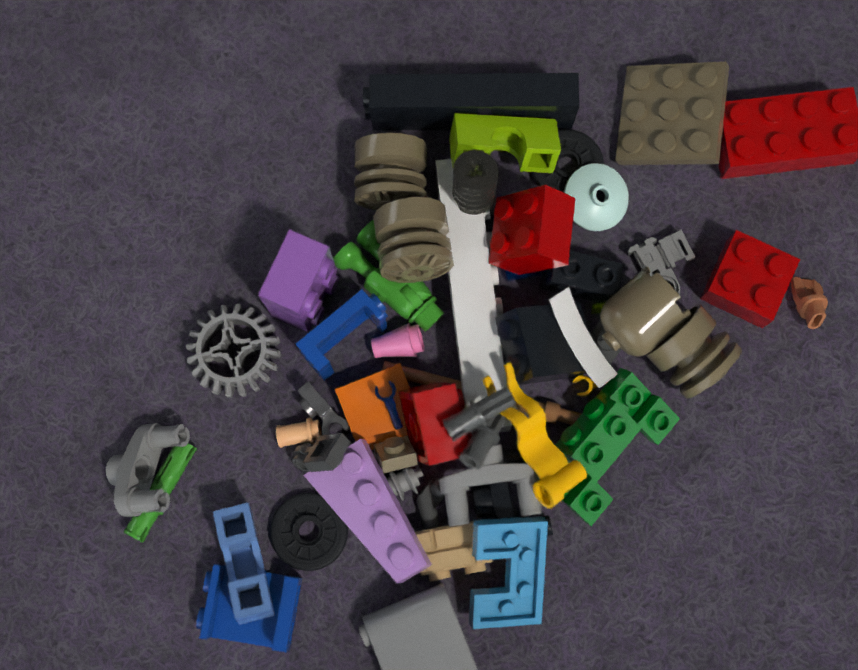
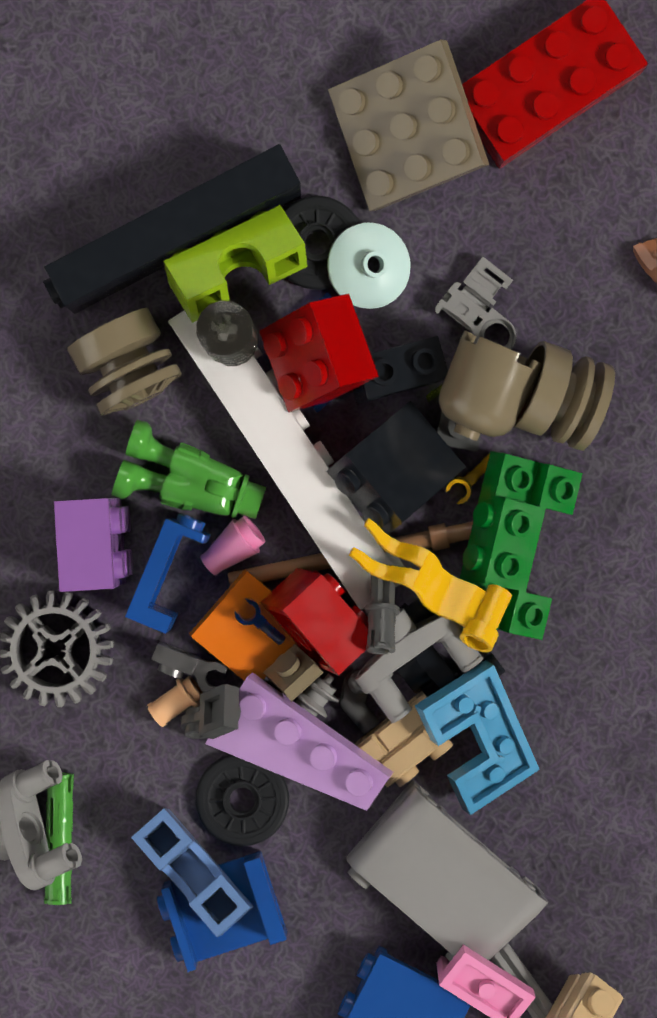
camera: 25 degrees left, 10 degrees up
(413, 240) = (188, 426): dark tan wheel -> none
(478, 413) = (363, 595): dark grey axle -> none
(580, 340) = (432, 446): white sticker -> none
(750, 279) = (586, 276): red brick -> none

